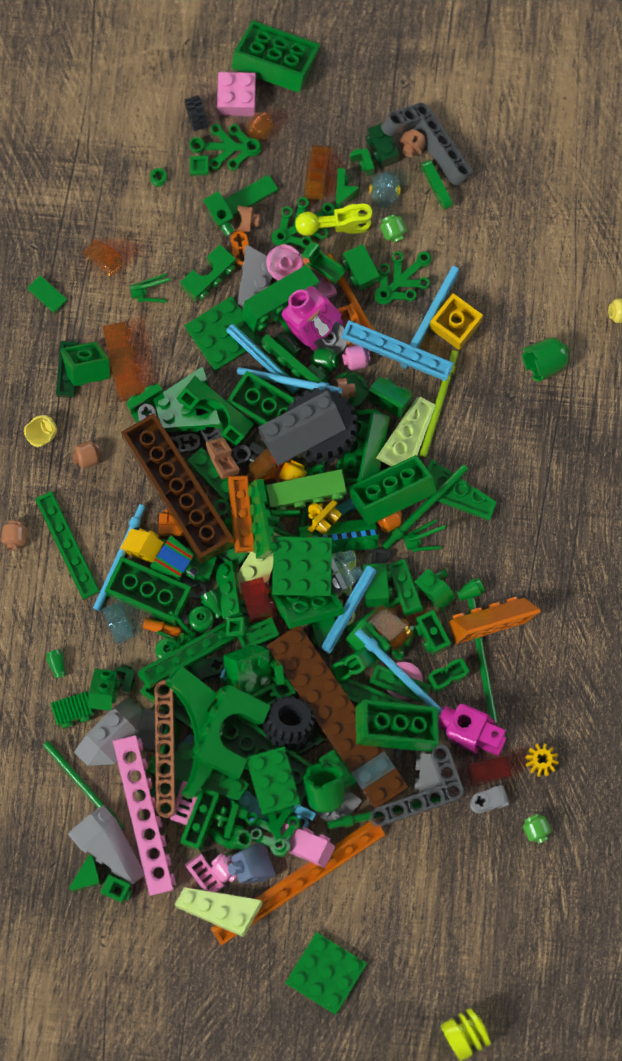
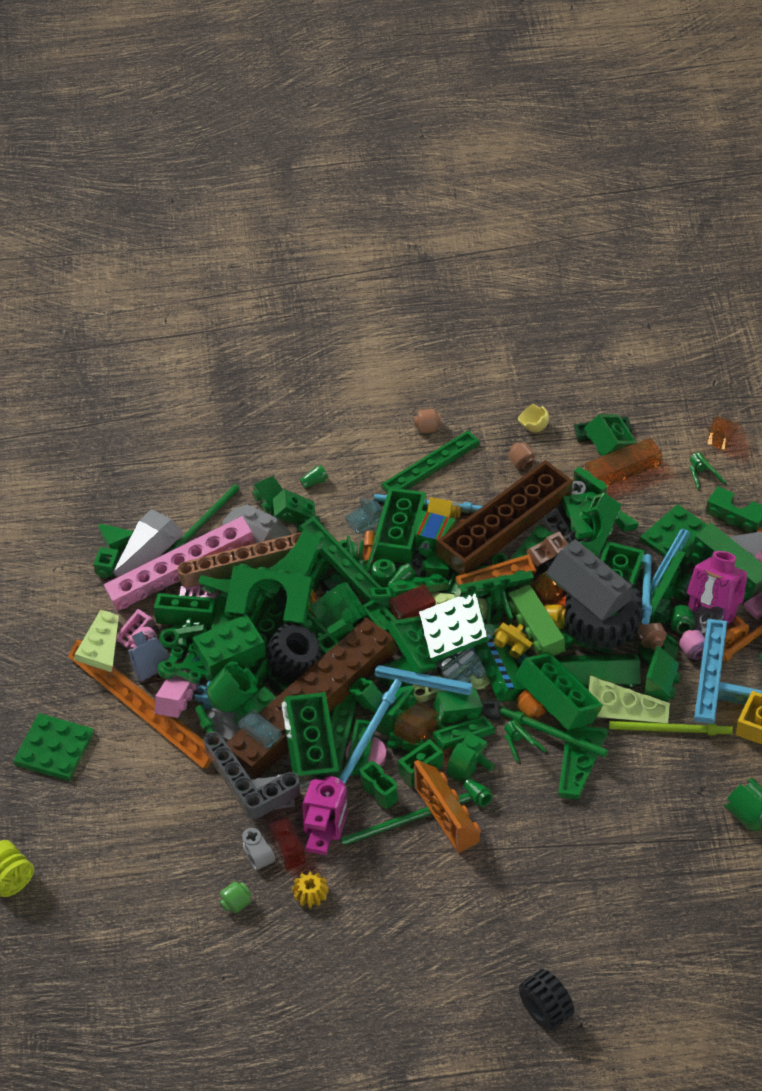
camera: 80 degrees right, 25 degrees down
(47, 294) = (670, 399): green tile -> none

